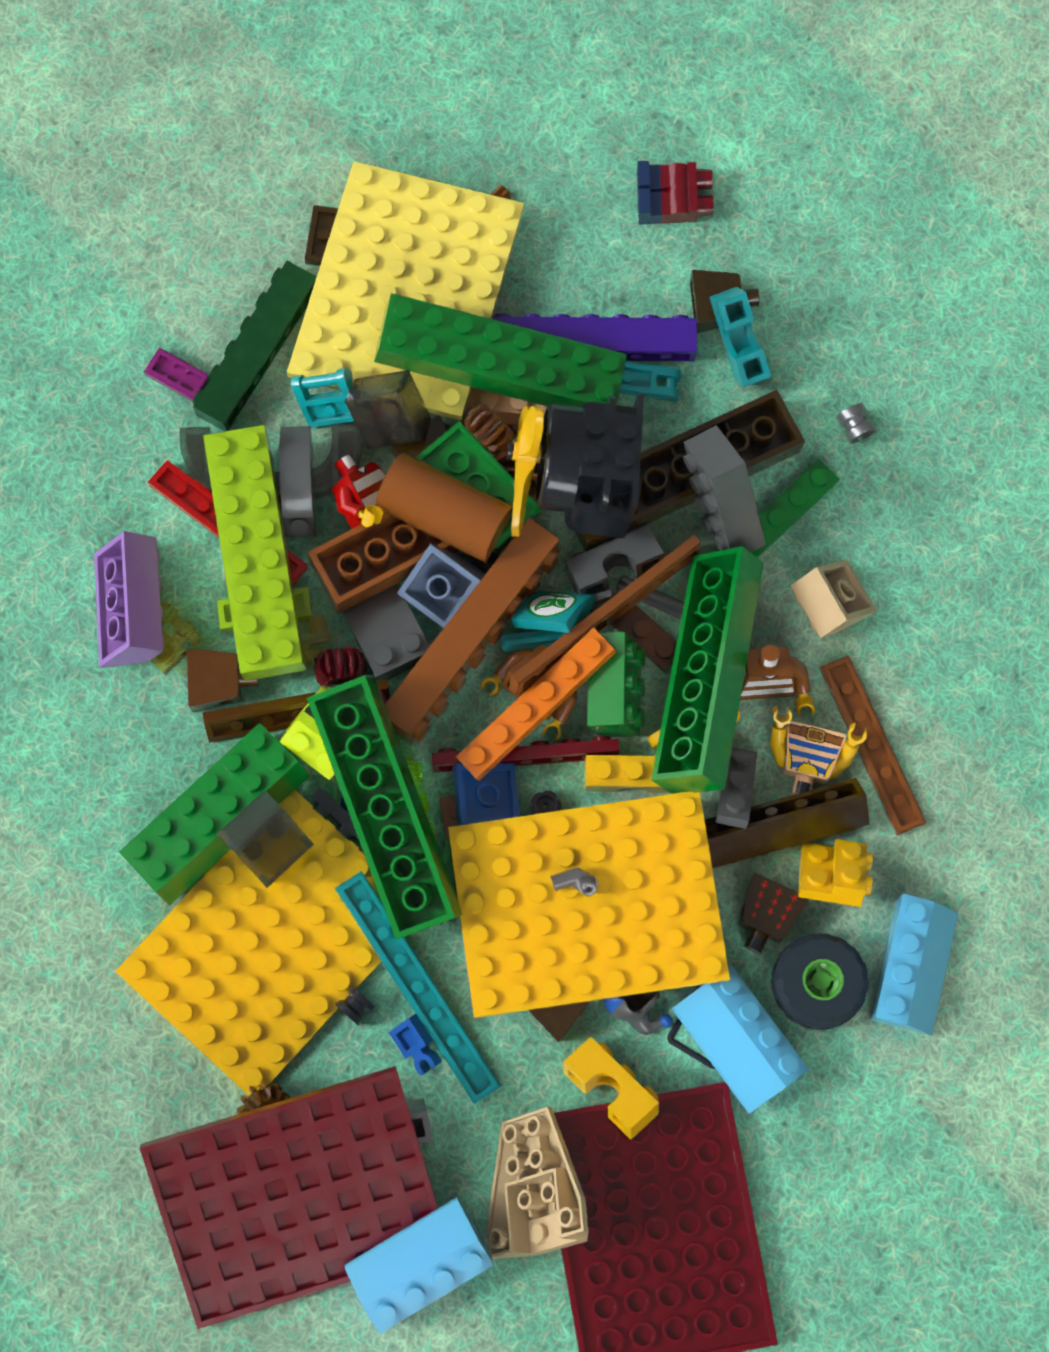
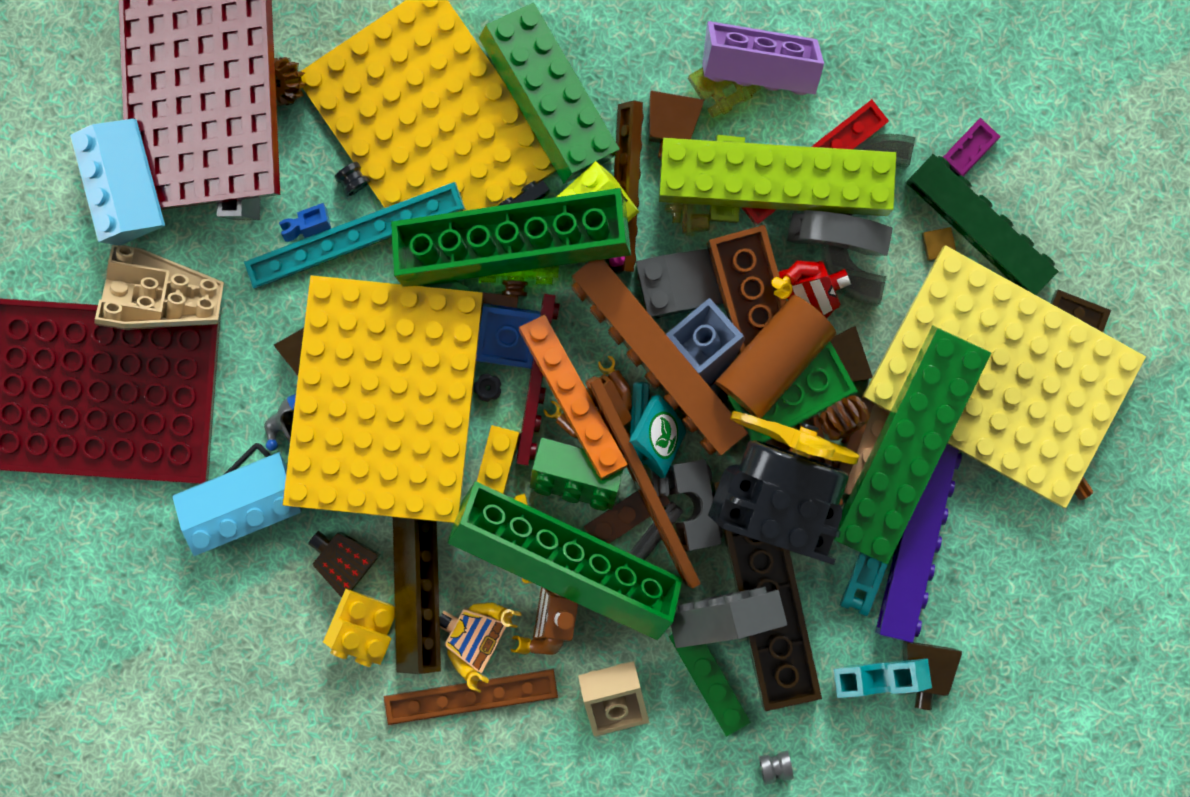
camera: 110 degrees right, 10 degrees up
(265, 838) = (509, 128): clear smoke piece -> none
(280, 385) = (935, 240): none -> pearl gold tile
(324, 407) = (904, 276): teal plate -> none
(339, 666) = (655, 232): dark red gear -> none
(388, 409) = (885, 329): clear smoke piece -> none
(433, 801) = (514, 287): none -> reddish brown bush
(578, 879) = (403, 392): dark grey arm -> none
(594, 1066) = (247, 370): yellow arch -> none
(670, 193) = (1048, 652): dark red hips -> none
(736, 799) = (438, 553): dark grey plate -> none
(819, 981) = (269, 588): black wheel -> none
(914, 964) = (264, 677): medium azure slope -> none

